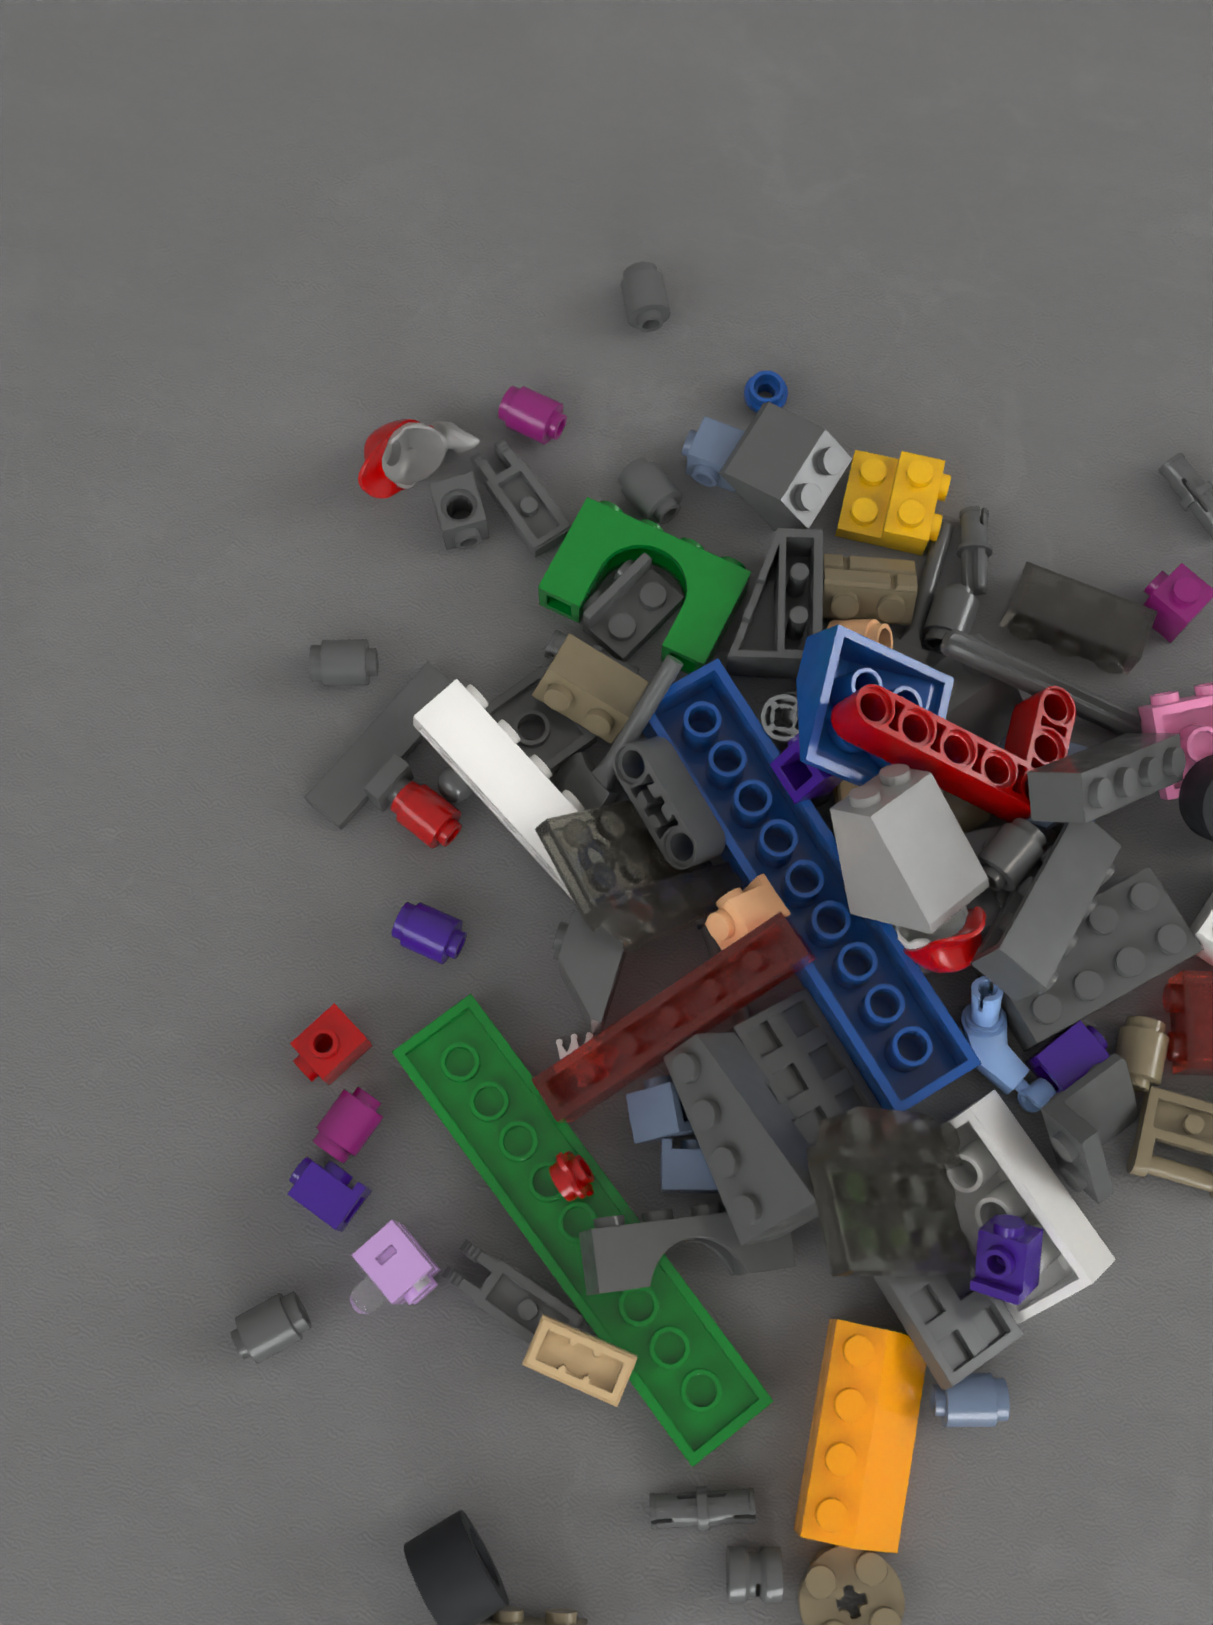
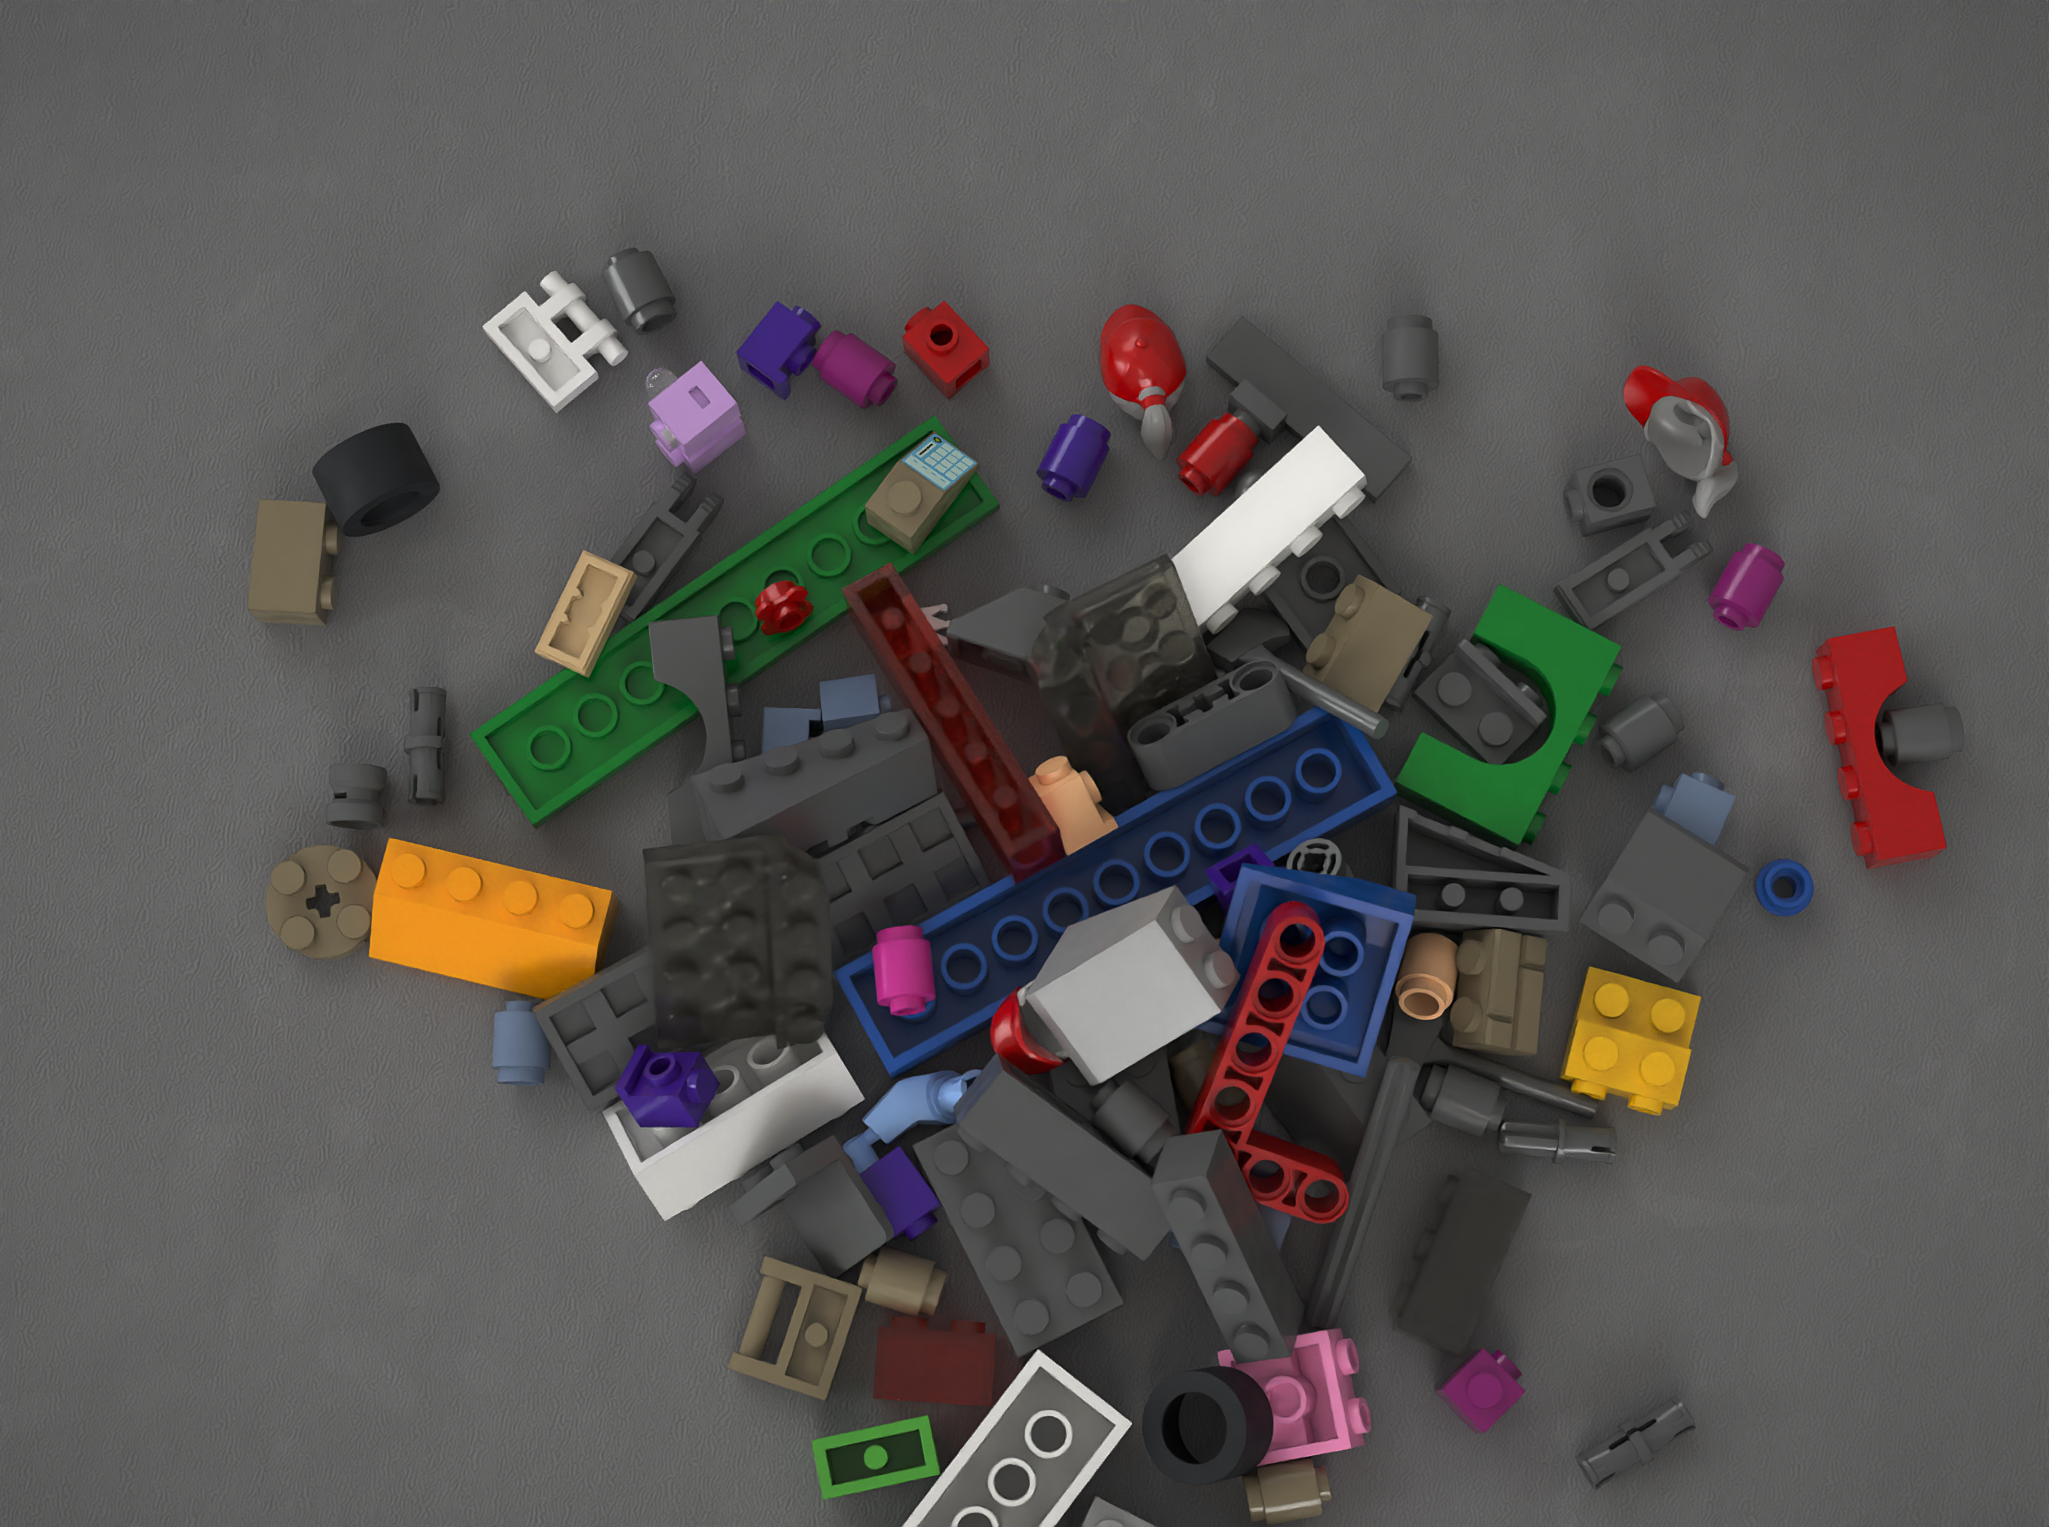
camera: 95 degrees right, 5 degrees up
(327, 1418) = (543, 352): none -> white plate
(350, 877) = (1143, 371): none -> red hair
(464, 1057) = (919, 491): none -> dark tan slope
(608, 337) = (1891, 817): none -> red arch
(899, 1049) = (903, 970): none -> dark pink brick

